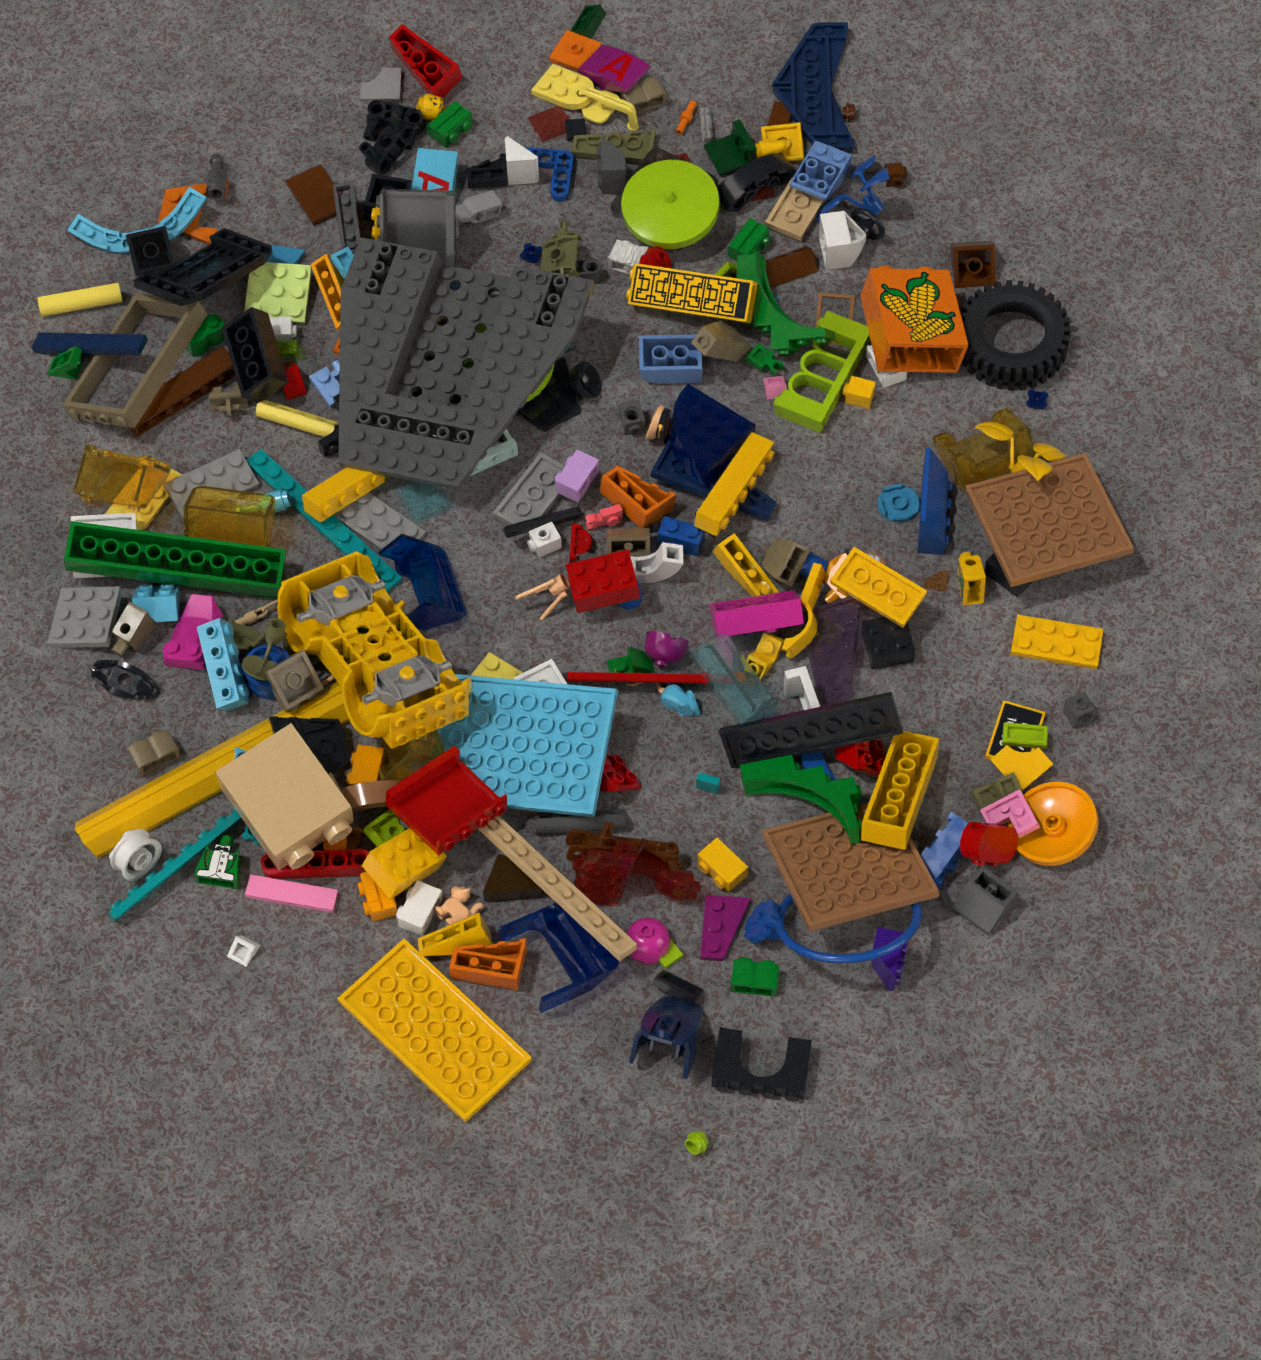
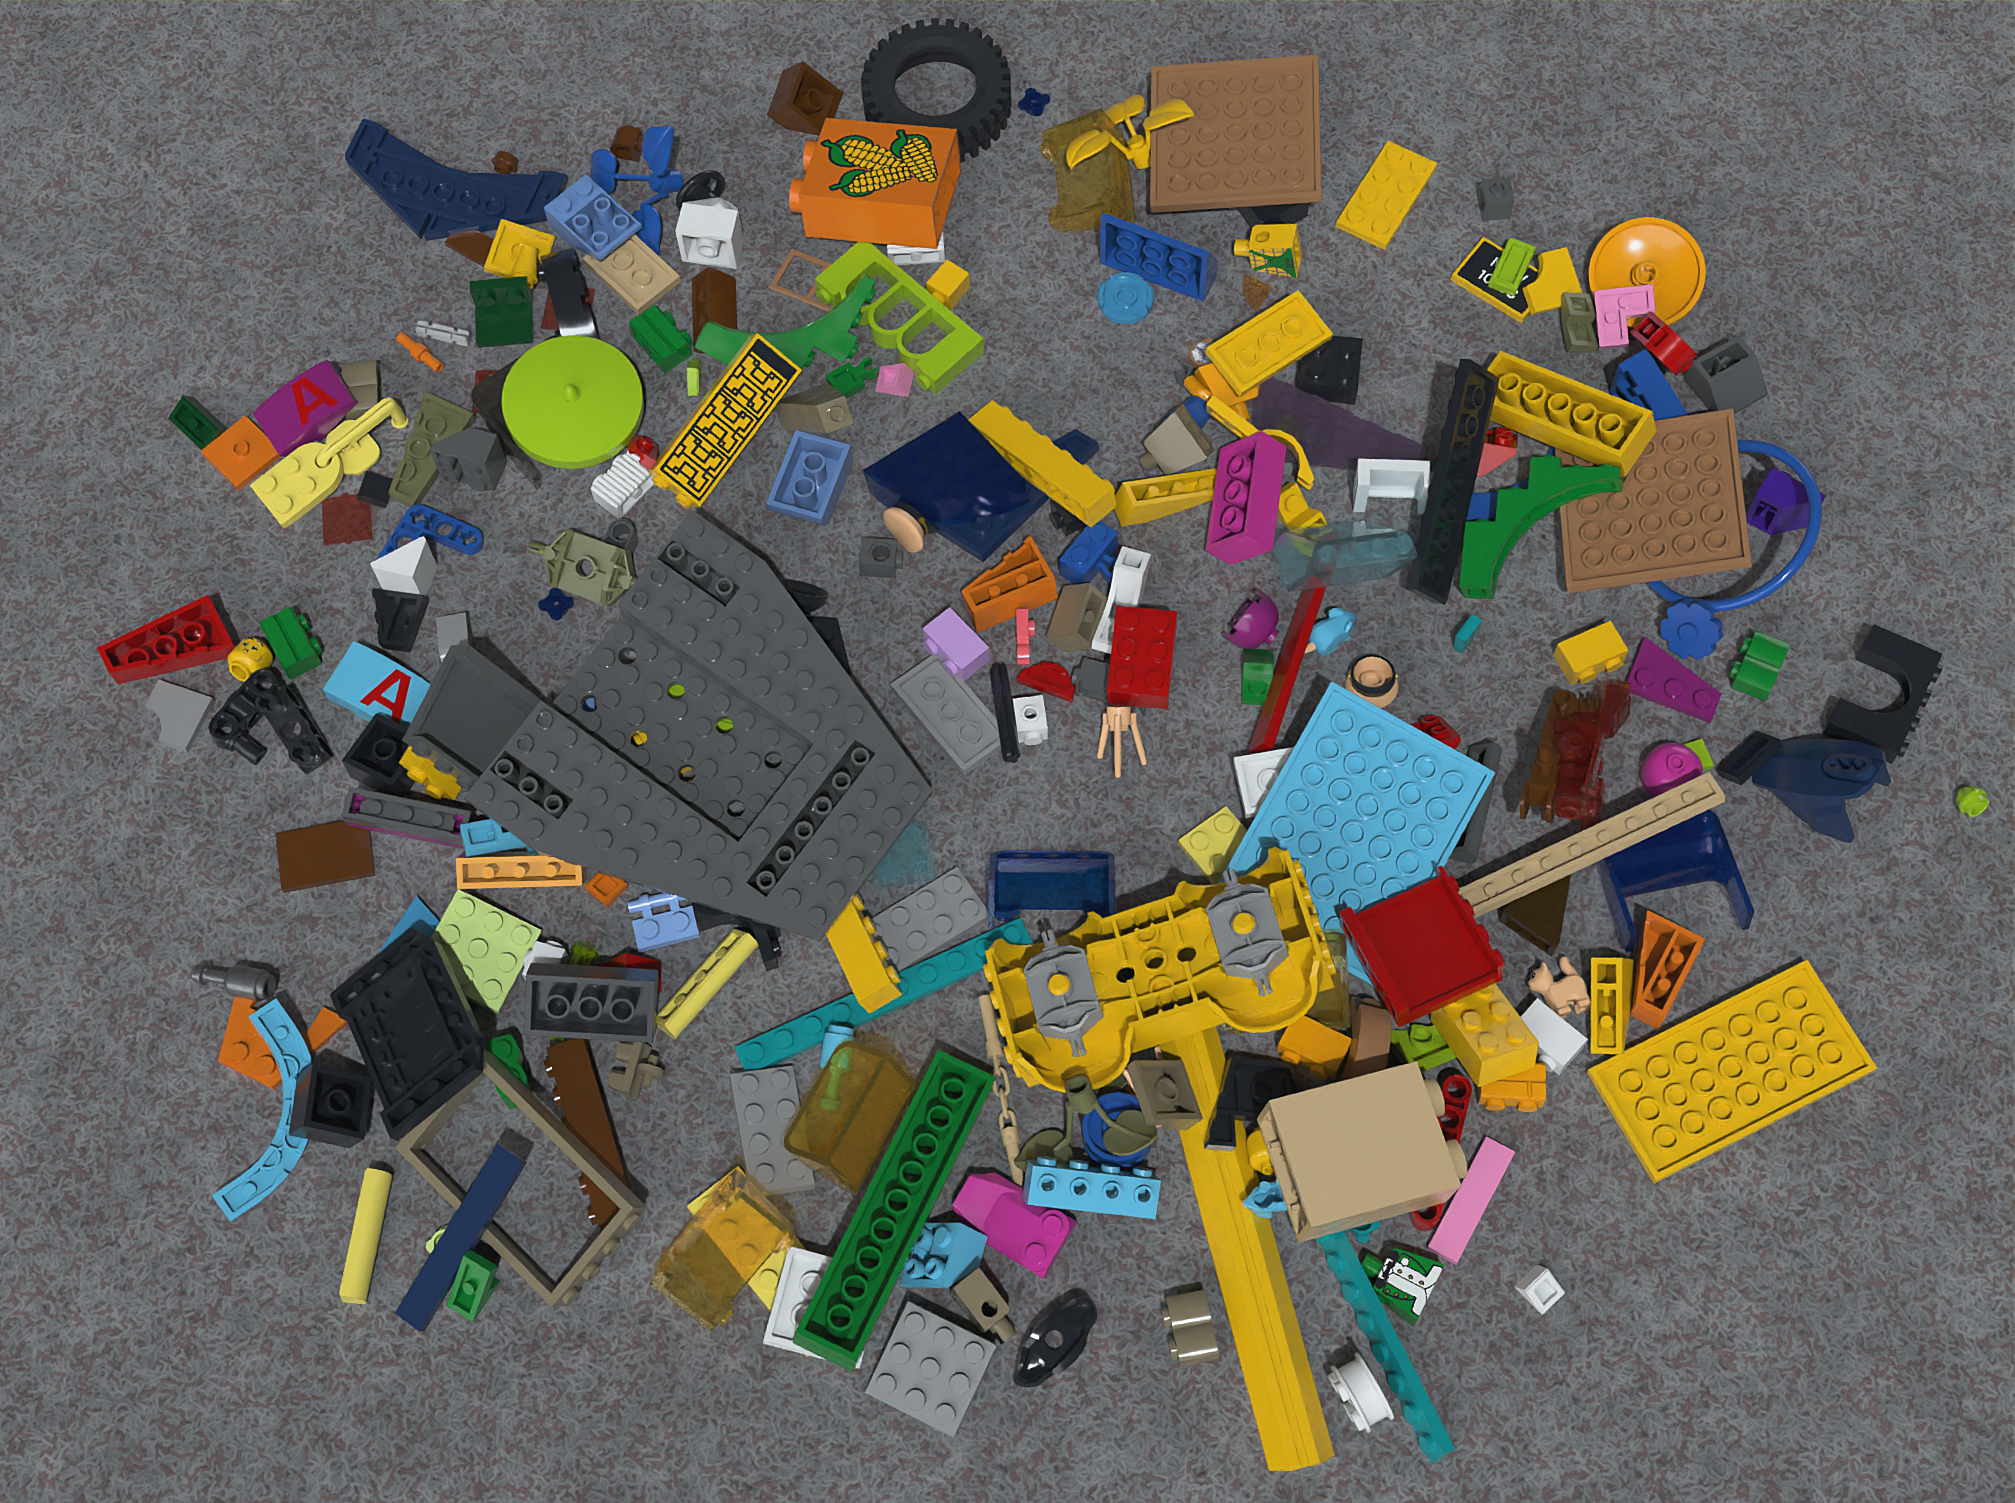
camera: 70 degrees left, 5 degrees up
(650, 736) = (1373, 680): none -> light nougat piece

